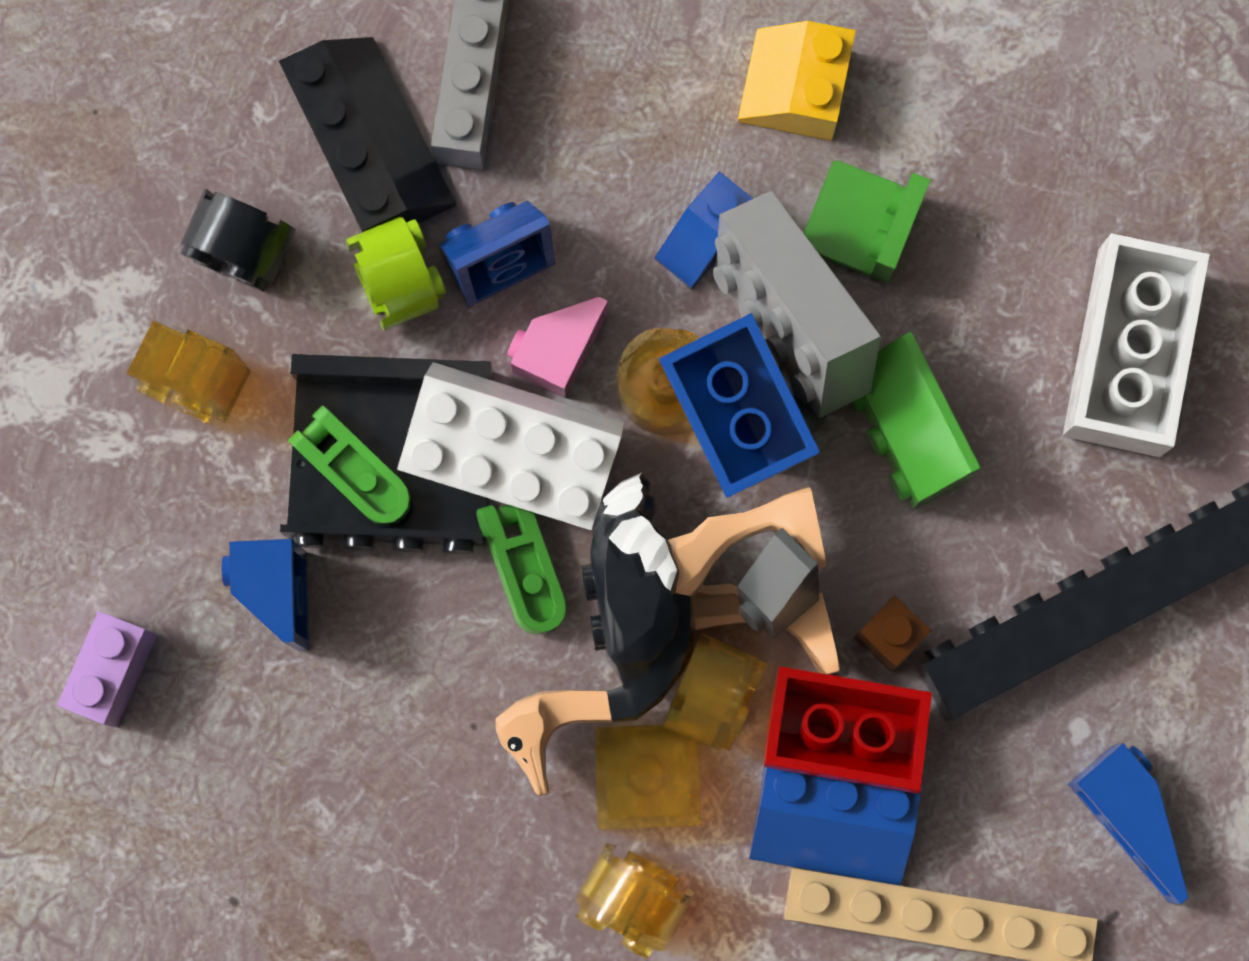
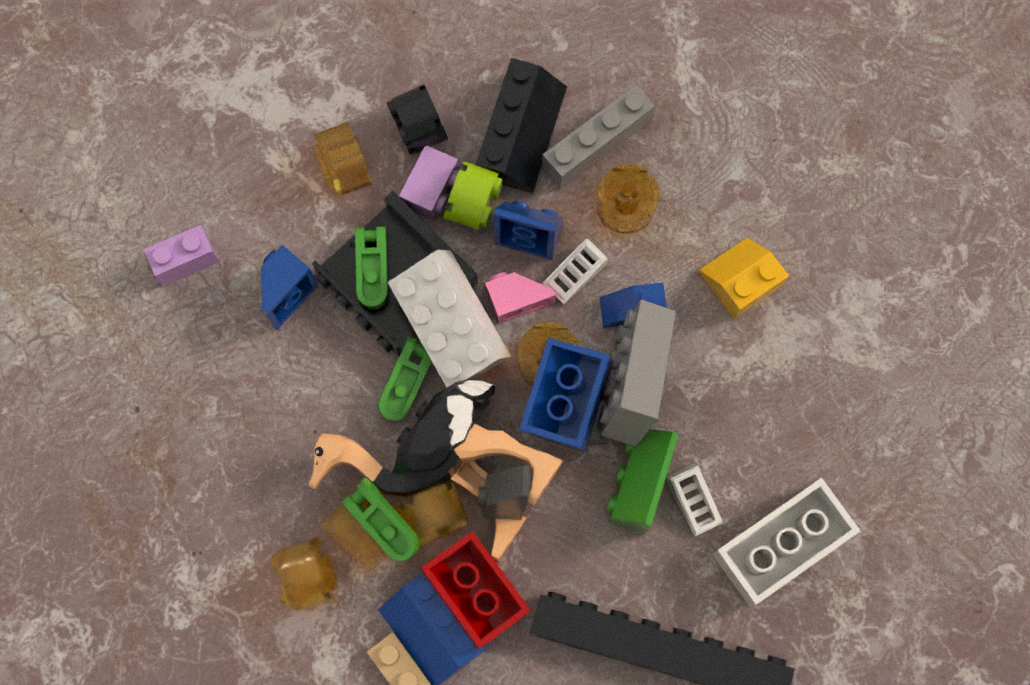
camera: 40 degrees right, 5 degrees down
(323, 302) = (430, 182): none -> lavender brick
(581, 83) = (630, 182): none -> clear yellow brick
(598, 211) = (590, 250): none -> white slope
(668, 754) = (382, 522): none -> bright green plate
(864, 219) = (712, 367): bright green bracket -> none
(892, 633) = (541, 568): reddish brown brick -> none
(971, 368) = (704, 494): none -> white slope

